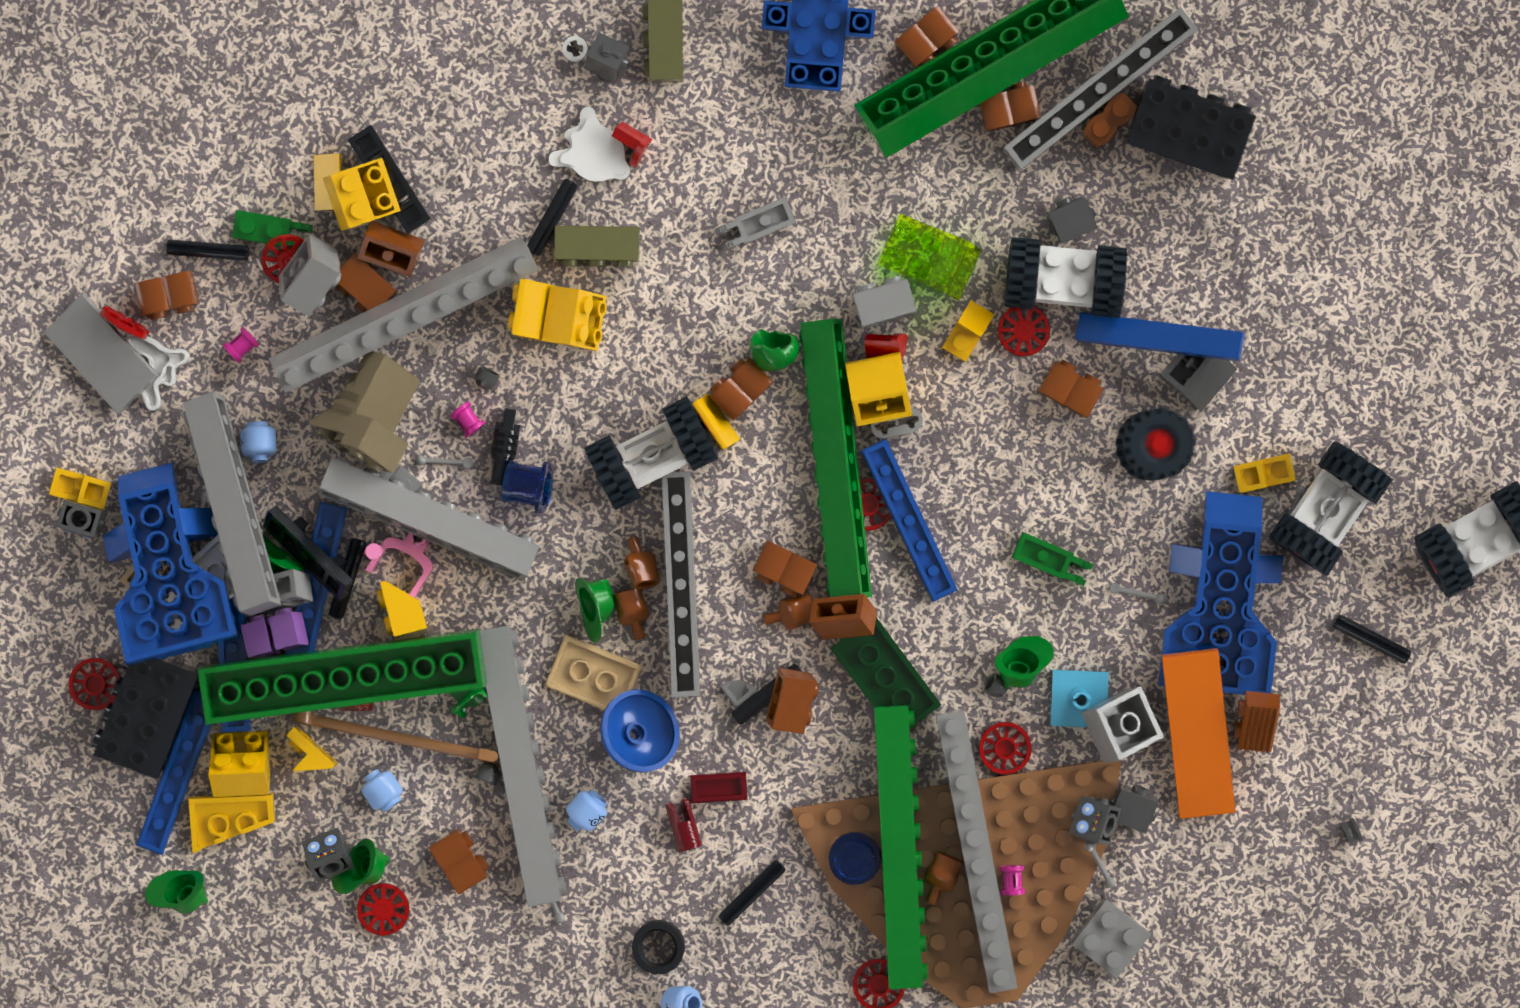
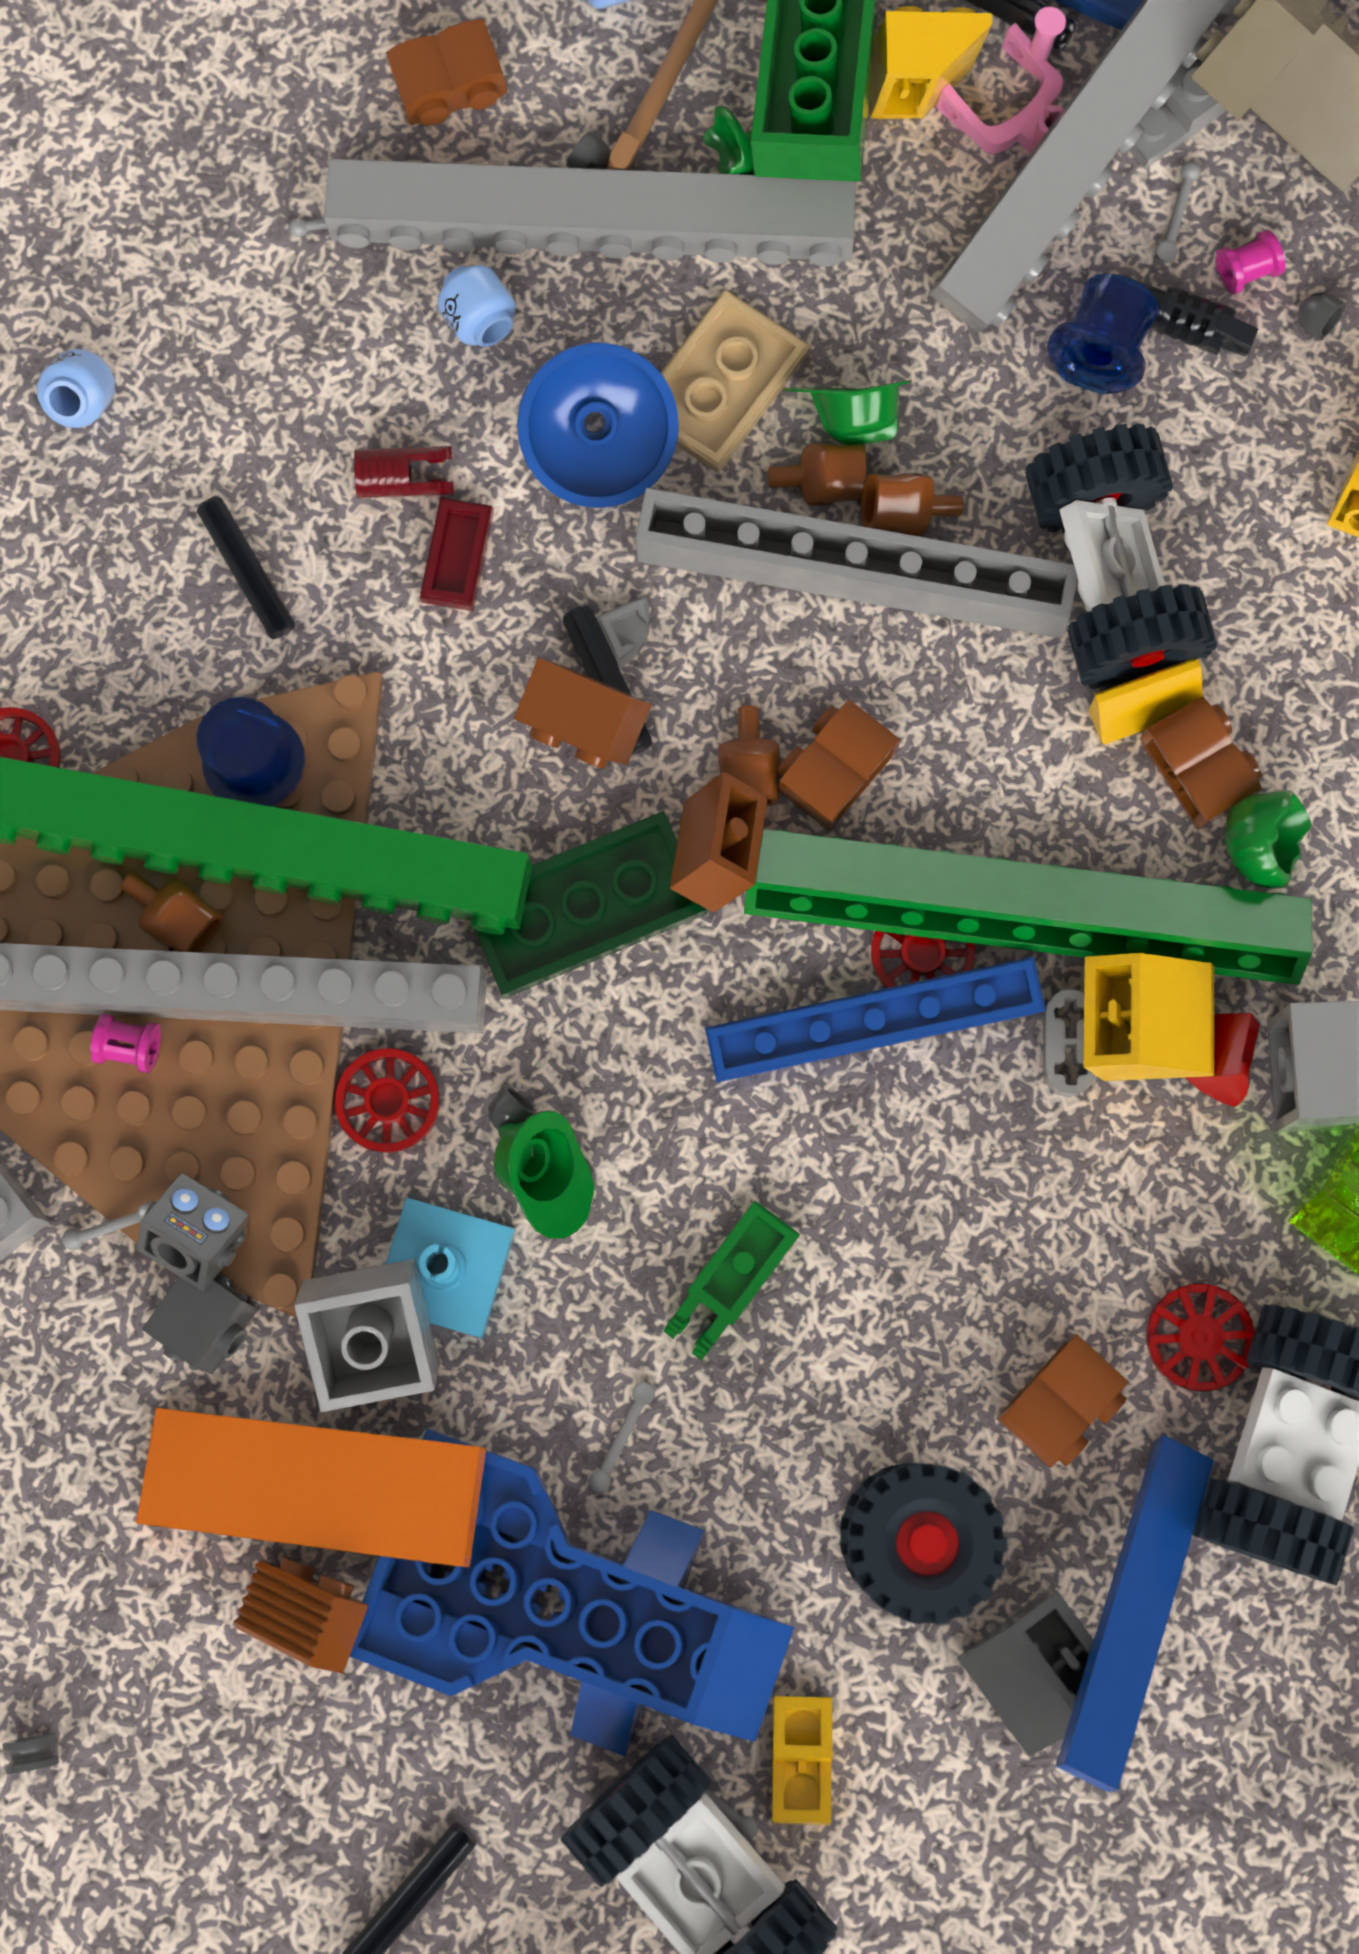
camera: 120 degrees right, 10 degrees down
(658, 968) = (185, 340): black tyre -> none
(968, 331) = (1222, 1226): yellow slope -> none

